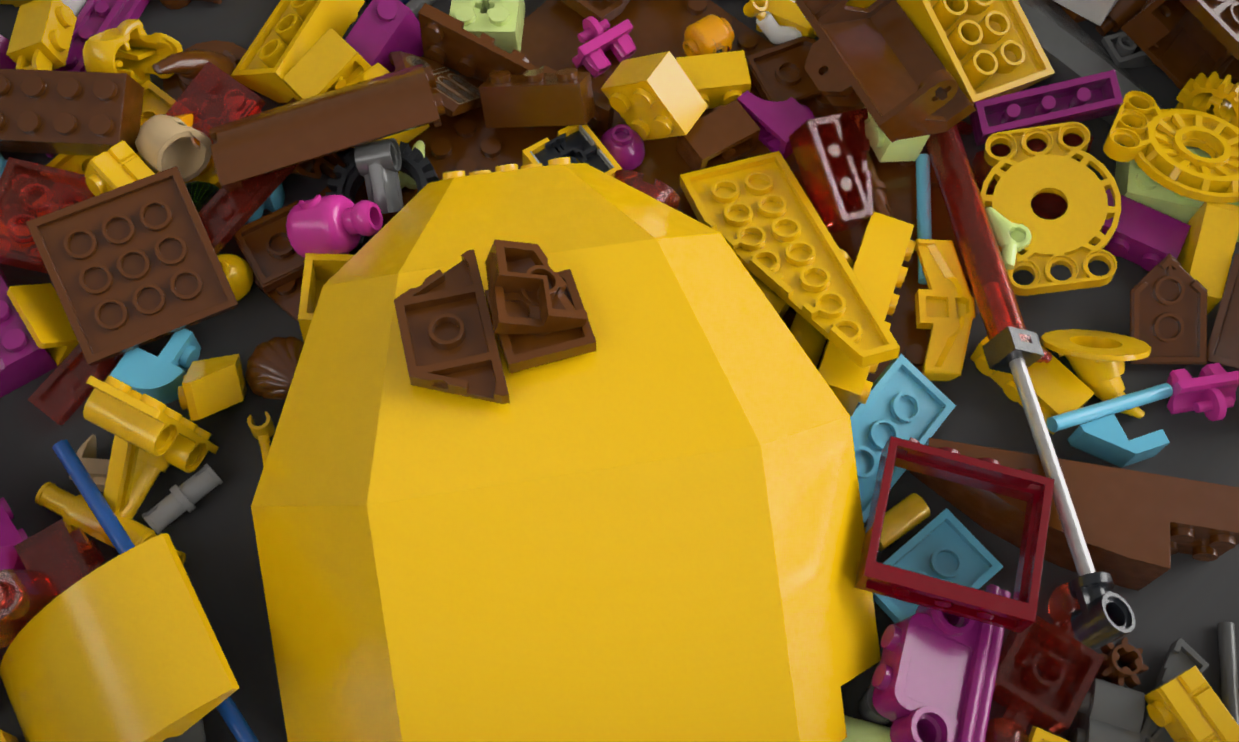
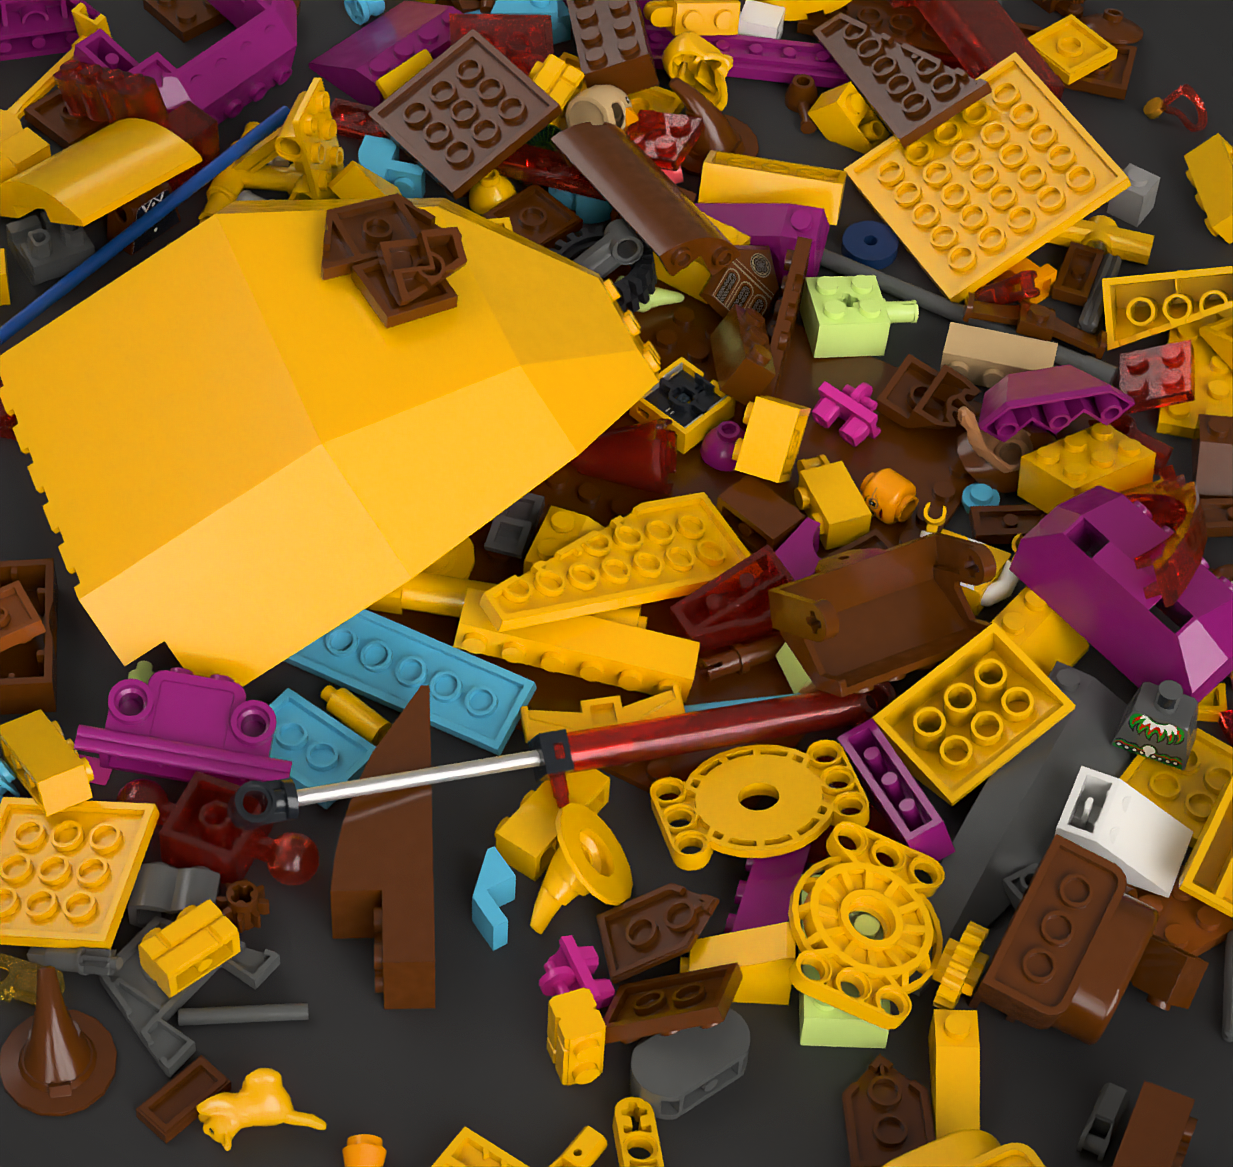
camera: 80 degrees right, 15 degrees down
(326, 66) = (723, 198): yellow panel -> none
(331, 224) = (542, 220): dark pink piece -> none
(943, 595) = (327, 635): dark red window -> none
(1009, 236) = (704, 766): yellowish green animal -> none
(1109, 407) = (523, 872): medium azure bar -> none

